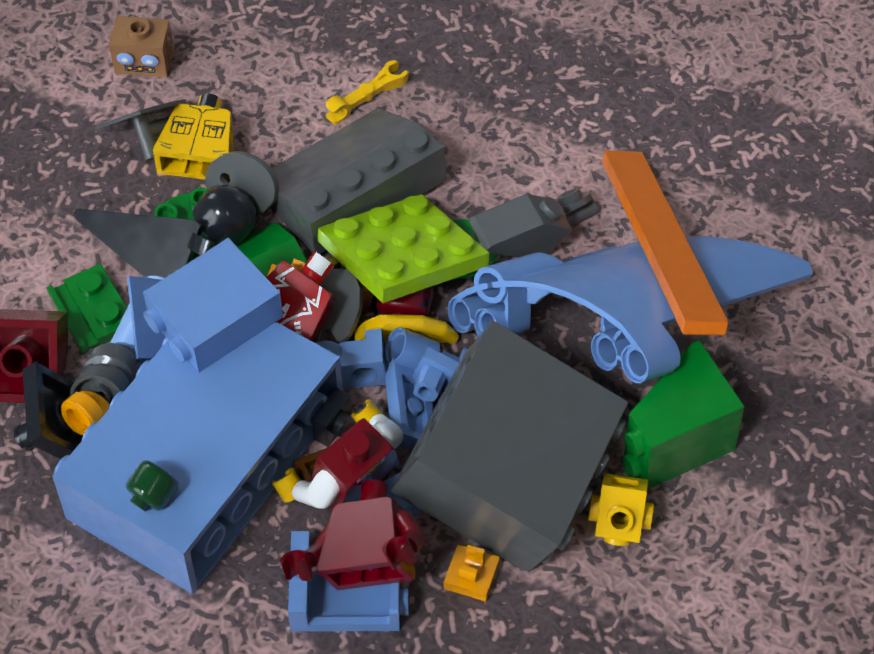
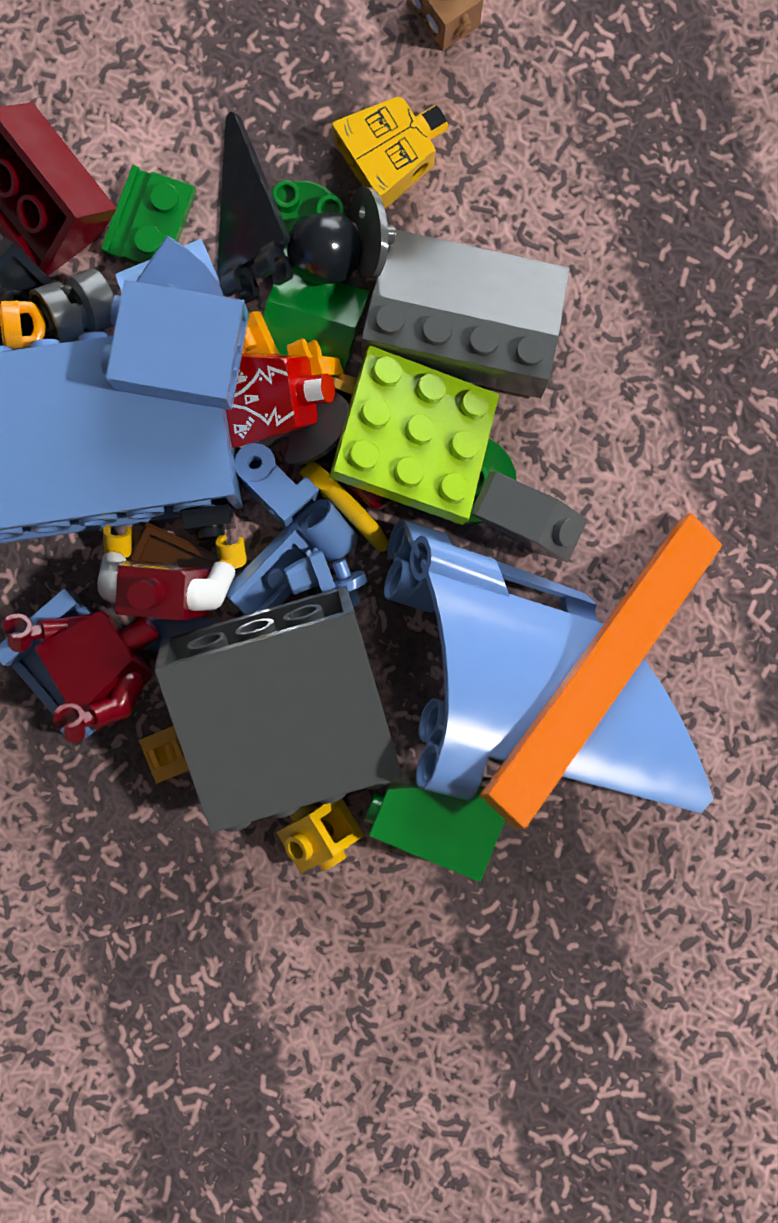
camera: 45 degrees right, 30 degrees up
(145, 130) = (369, 82): dark grey shield -> none
(341, 107) = (538, 236): yellow piece -> none
(577, 206) = (607, 535): dark grey plate -> none

